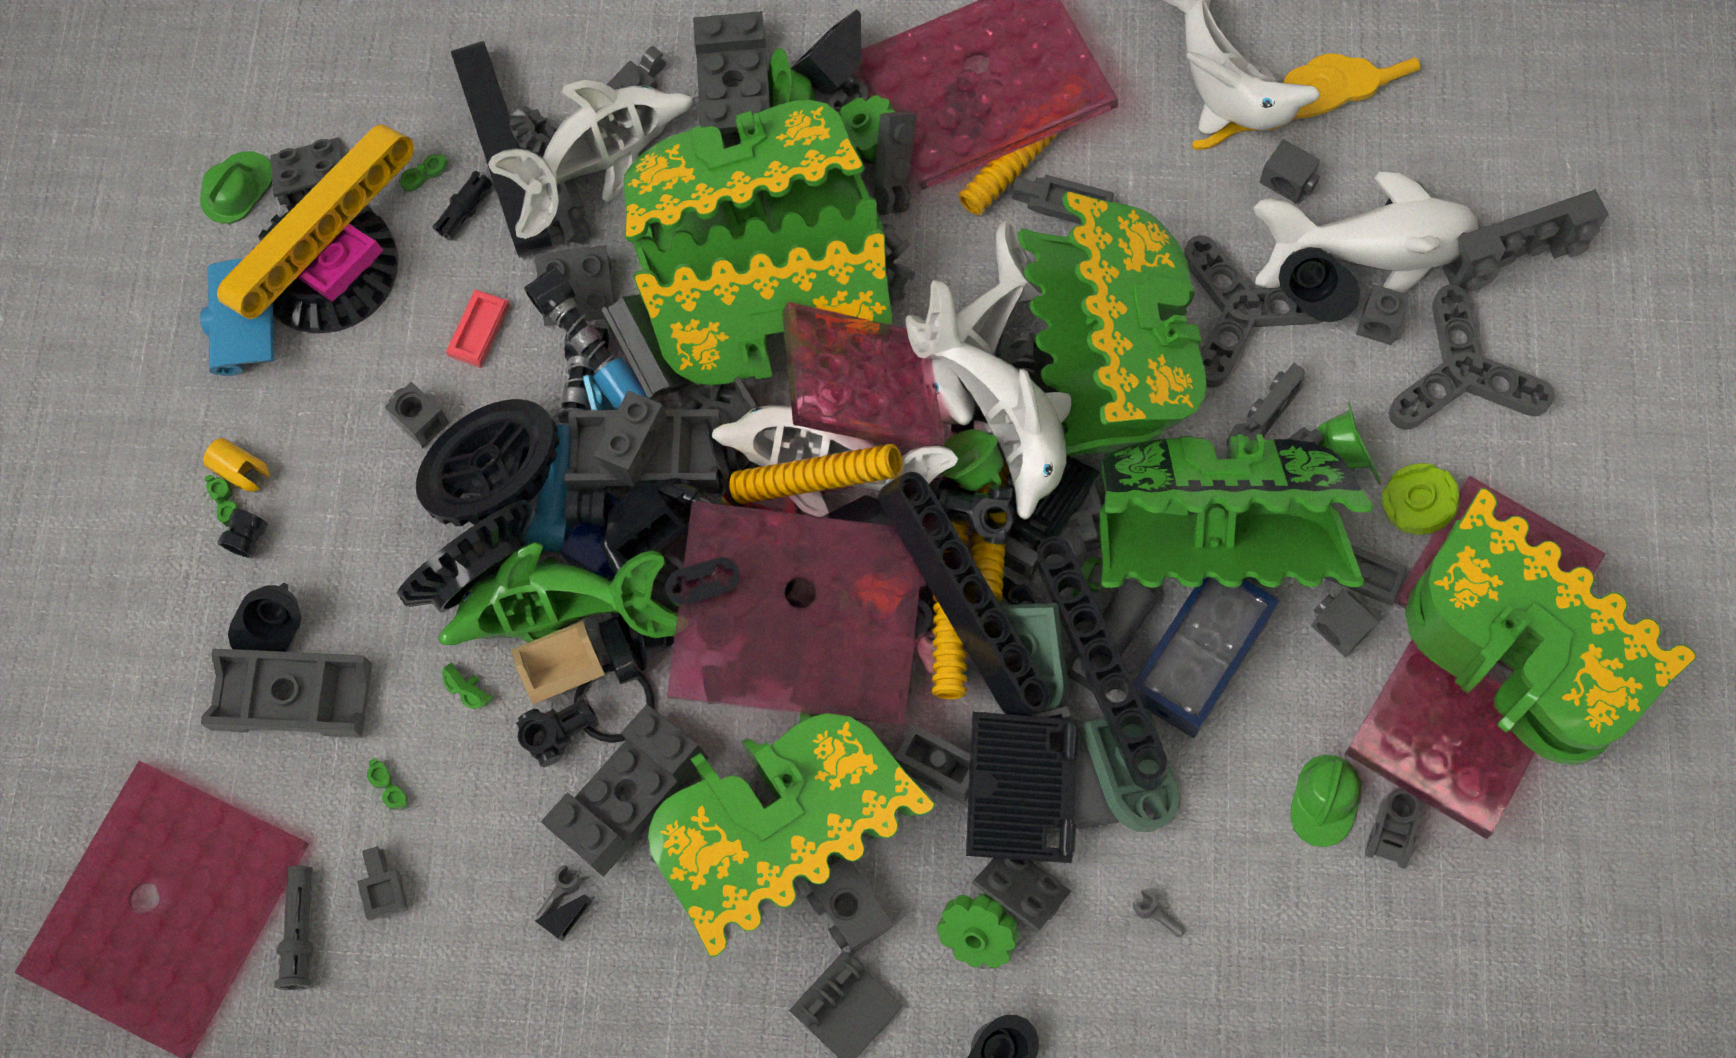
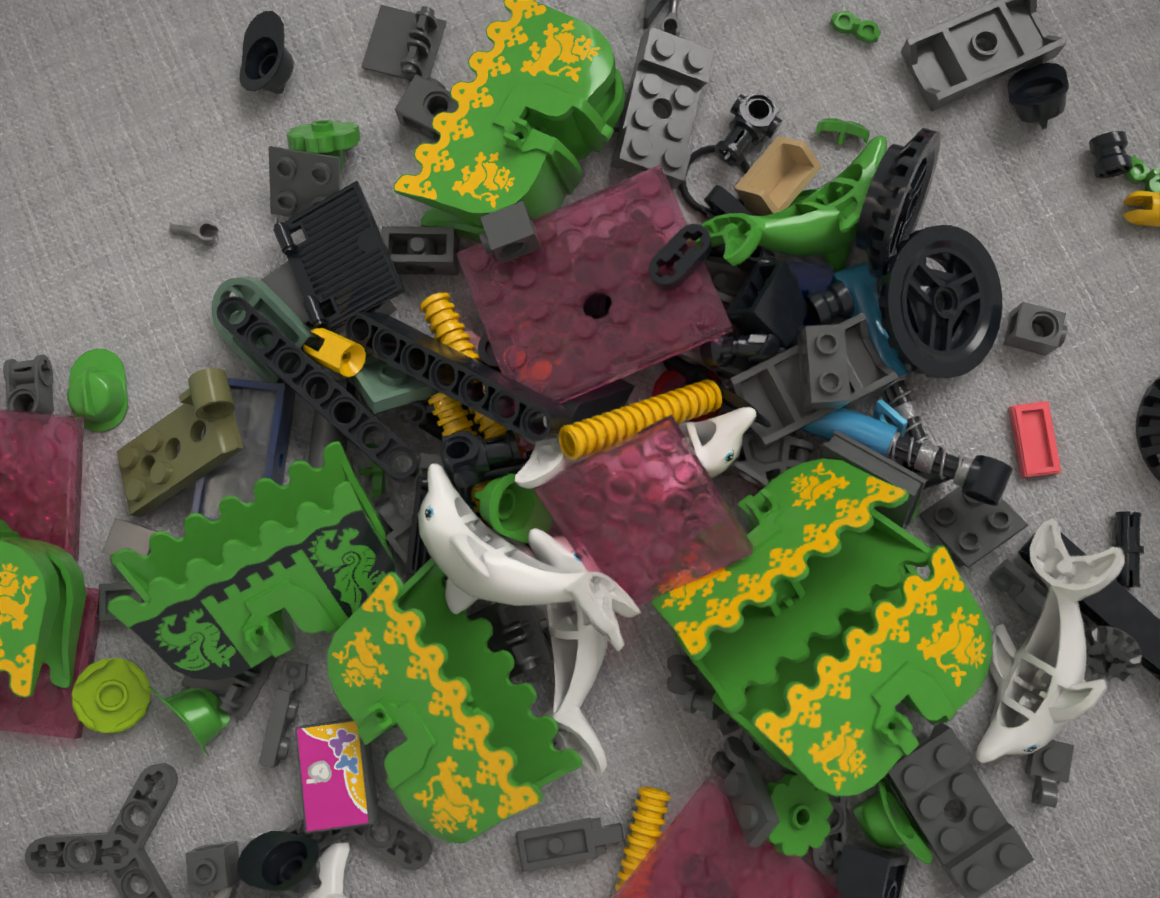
camera: 155 degrees right, 10 degrees up
(846, 695) = (509, 233): none -> dark grey brick
(1066, 681) = (337, 353): none -> yellow piece
(1207, 684) = (205, 404): none -> olive hinge
(1239, 332) = (335, 776): none -> piece

